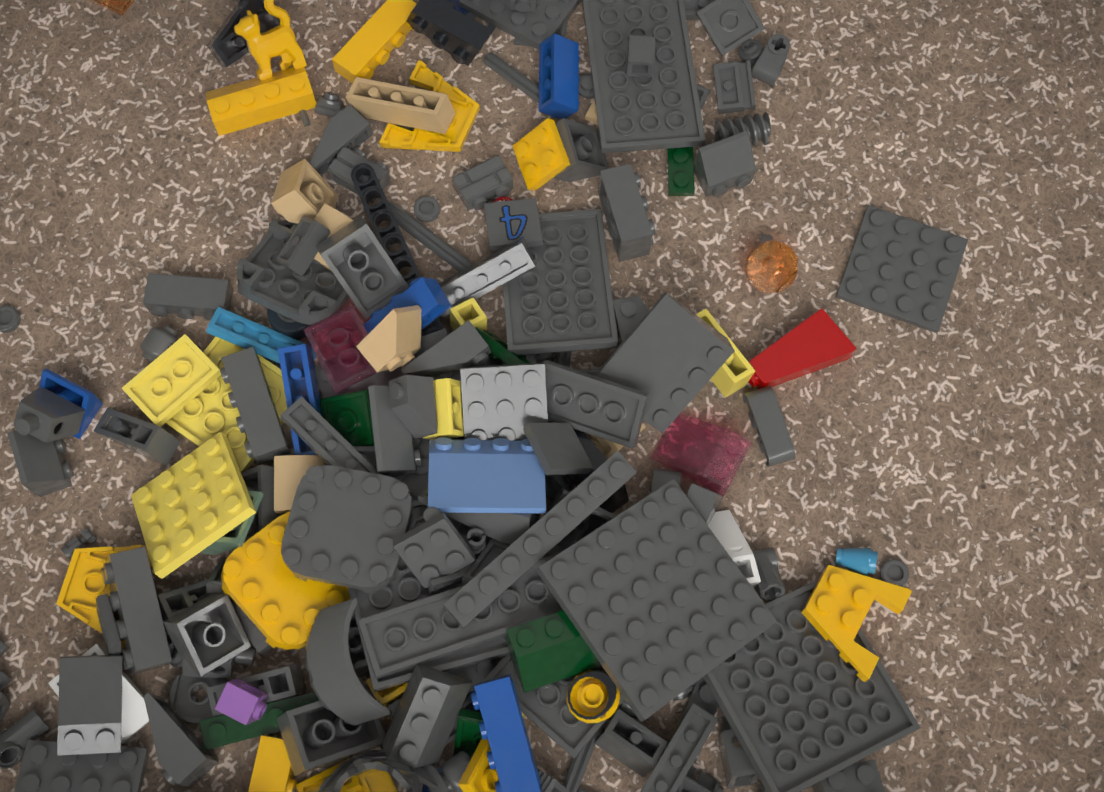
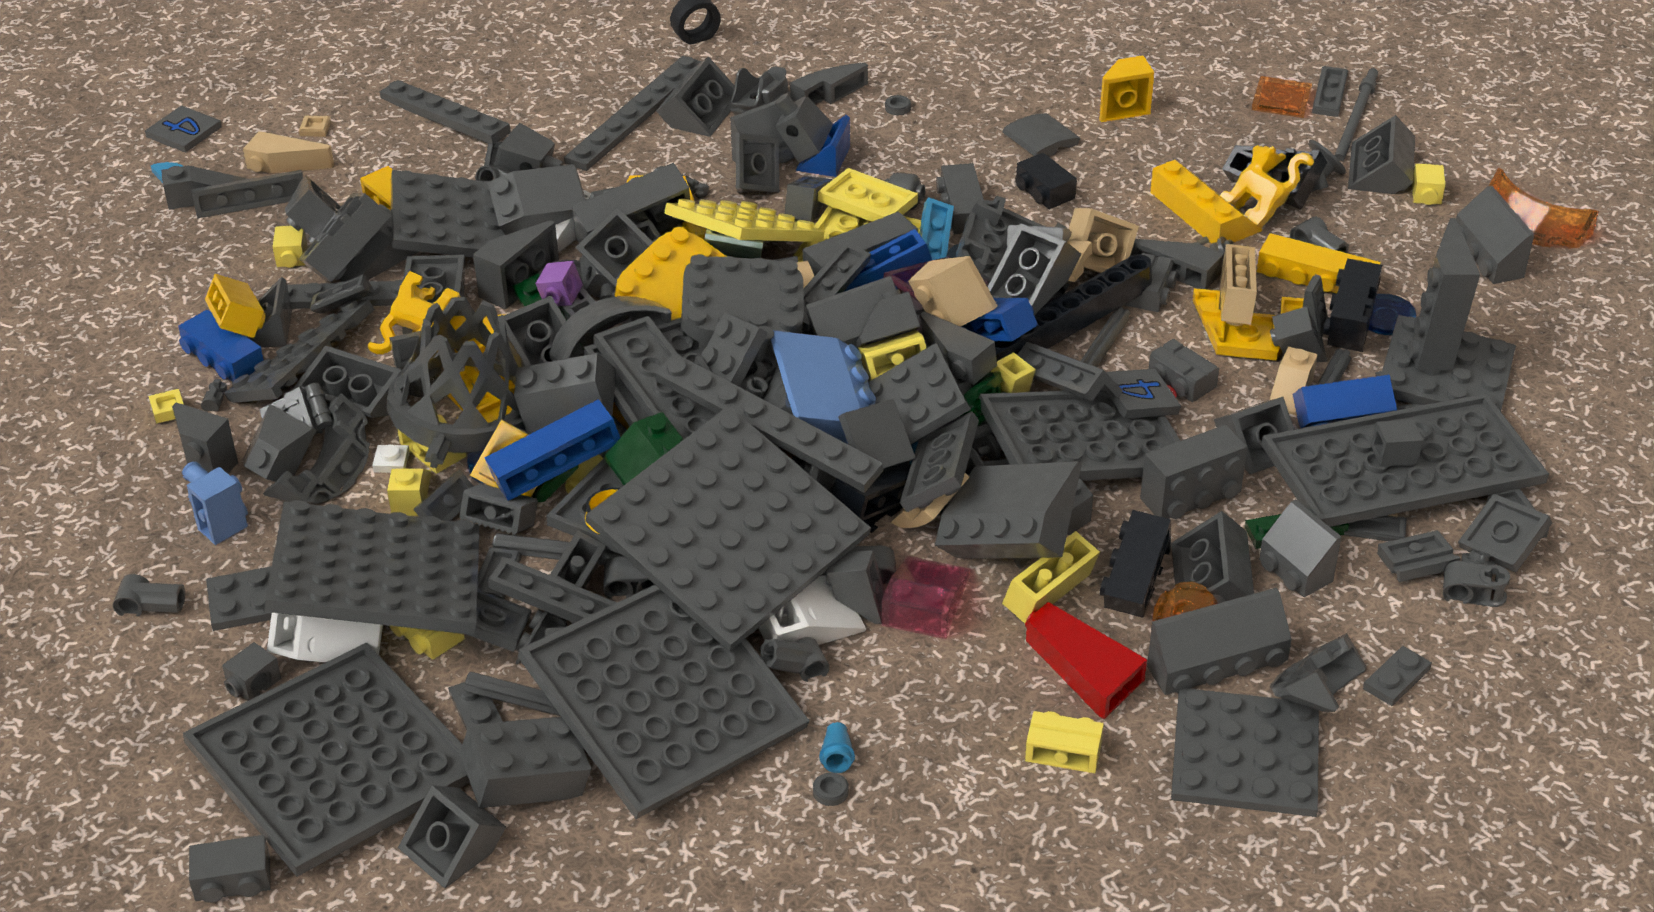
camera: 80 degrees right, 30 degrees down
(76, 105) = (1127, 89): none -> yellow slope
(83, 475) = (757, 164): none -> dark grey slope
(105, 202) = (1040, 134): none -> dark grey slope
(184, 218) = (1045, 181): none -> black brick
(332, 27) = (1316, 232): none -> dark grey piece
(426, 209) = (1134, 341): dark grey tile -> none
(441, 61) = (1315, 301): none -> dark grey slope
(476, 83) = (1298, 331): none -> dark grey slope
(517, 104) = (1294, 372): none -> tan slope
(541, 154) = (1237, 399): yellow plate -> none
(713, 285) = (1136, 563): none -> black wedge
(719, 232) = (1215, 557): none -> dark grey slope
(757, 128) = (1361, 570): dark grey piece -> none
(770, 426) = (978, 643): dark grey beam -> none
(812, 245) = (1219, 641): none -> dark grey slope
(840, 607) = (772, 726): yellow wing -> none
(846, 144) = (1397, 675): none -> dark grey plate
(852, 209) = (1320, 675): none -> dark grey windscreen
(881, 389) = (1064, 741): none -> light yellow brick

